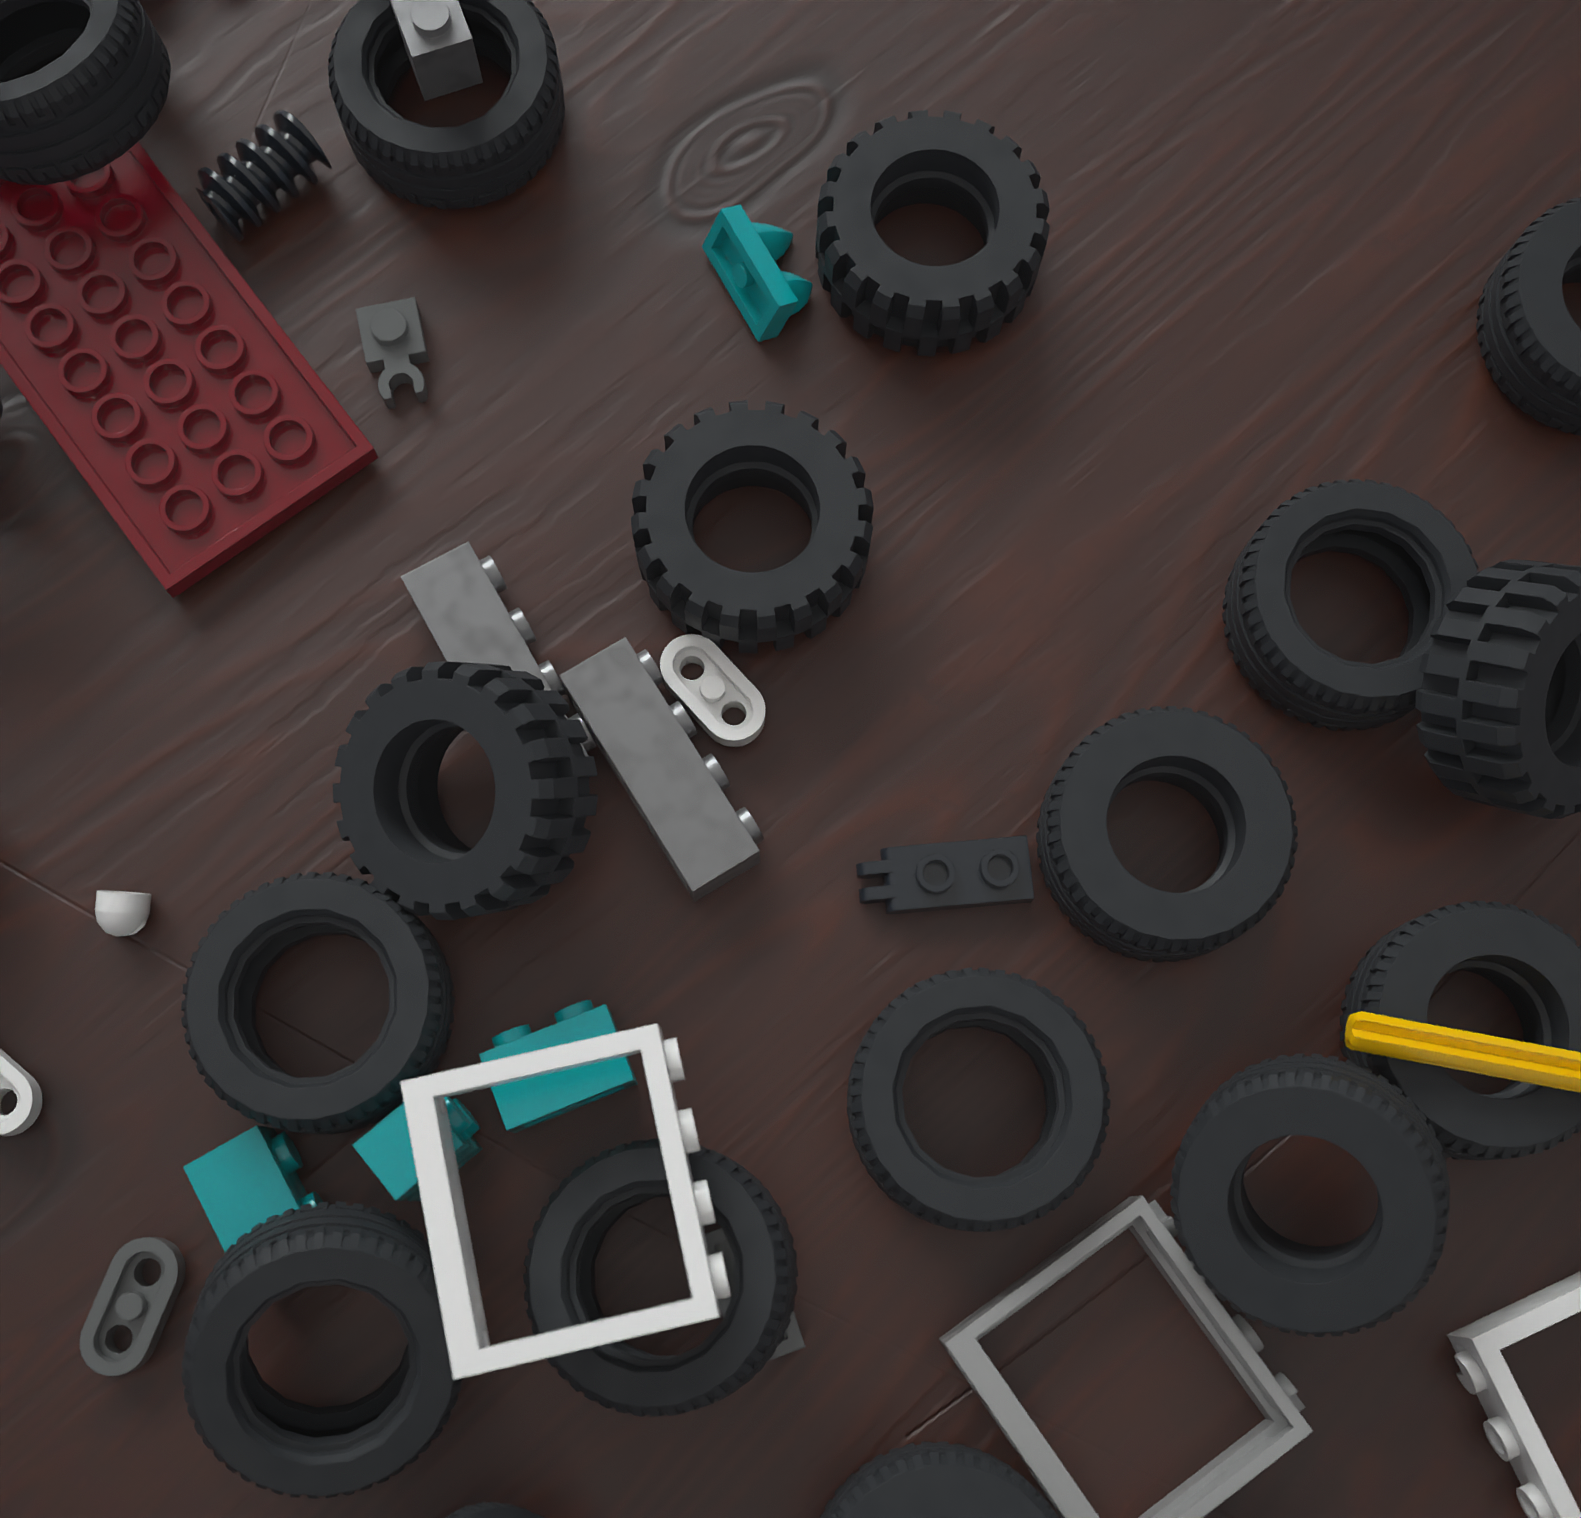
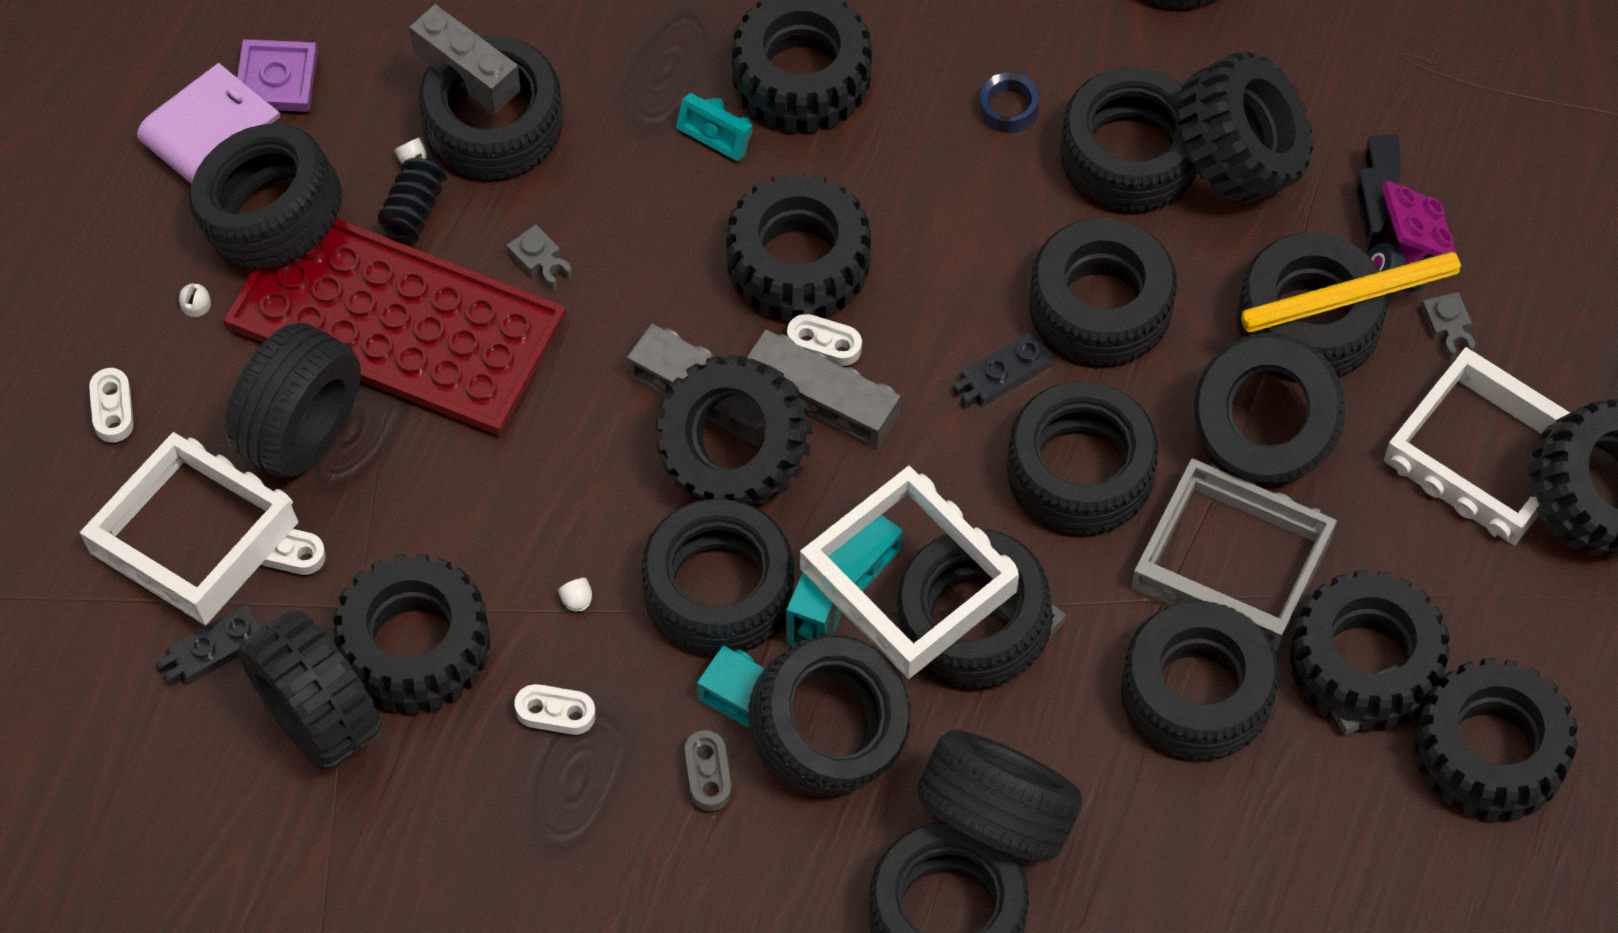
camera: 25 degrees left, 15 degrees down
(311, 98) = (412, 149): none -> white hinge
(1222, 416) = (1010, 82): none -> dark blue piece

